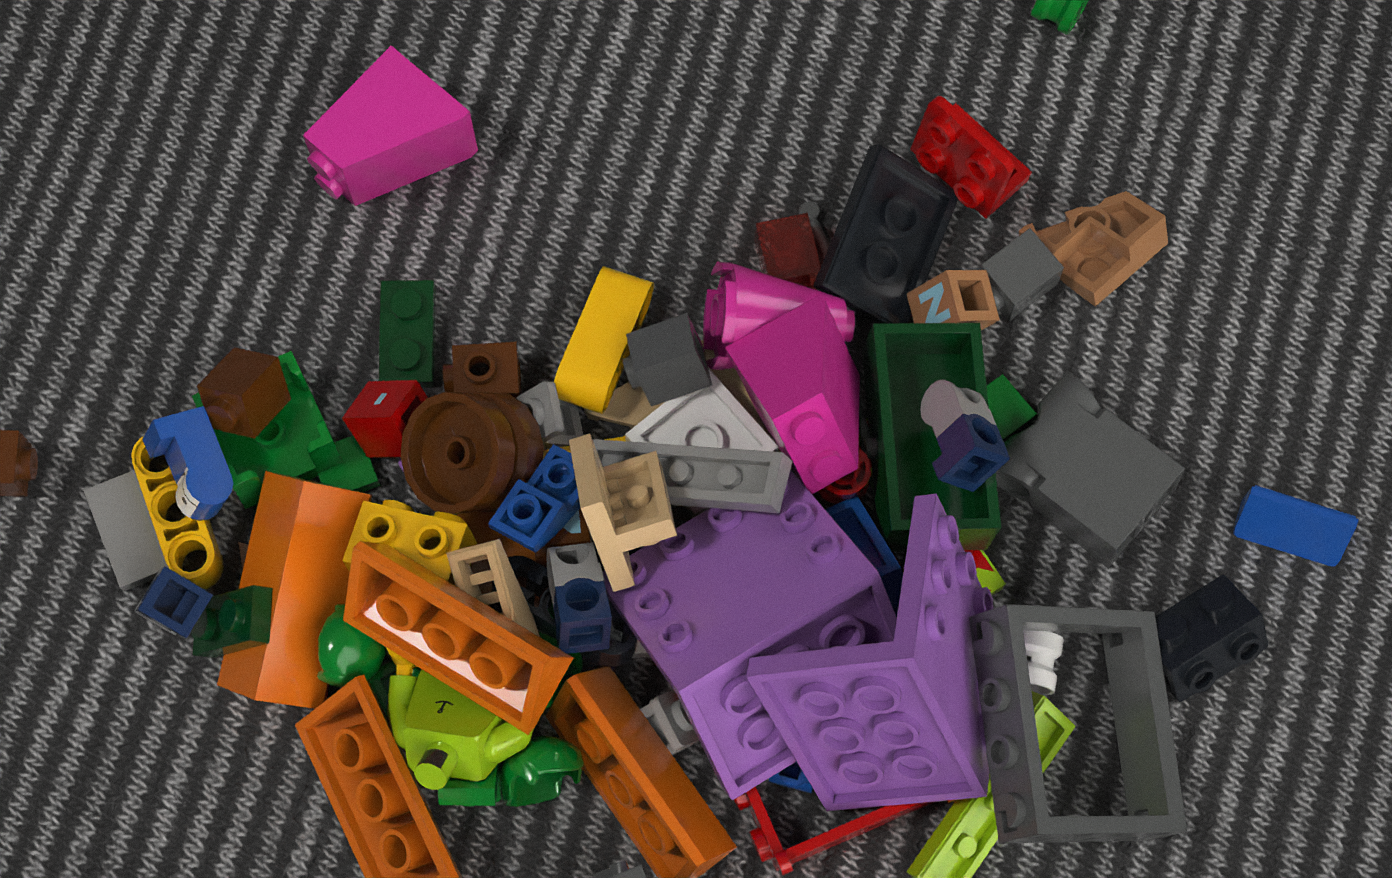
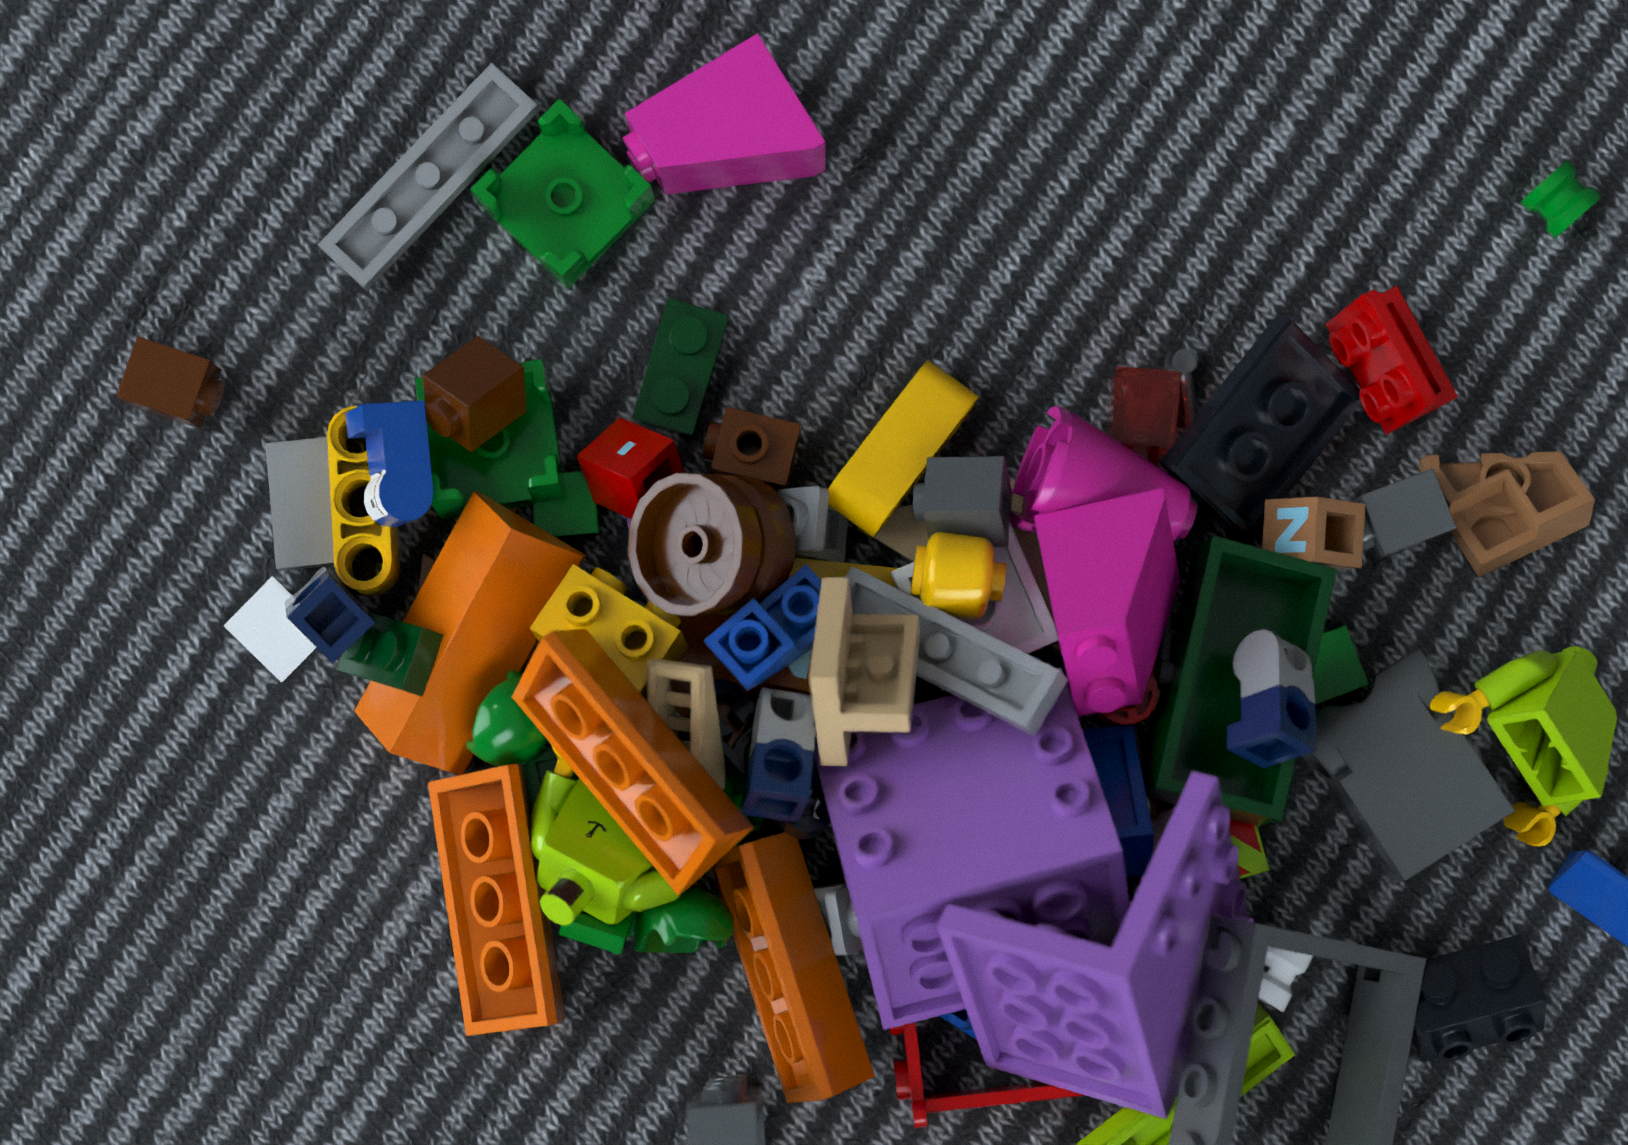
camera: 20 degrees right, 10 degrees up
(132, 641) = (267, 631): none -> white sticker
(159, 244) = (429, 177): none -> light grey plate
(274, 227) = (564, 196): none -> green panel
(679, 414) = (958, 575): none -> yellow head
(1192, 397) = (1552, 726): none -> lime torso

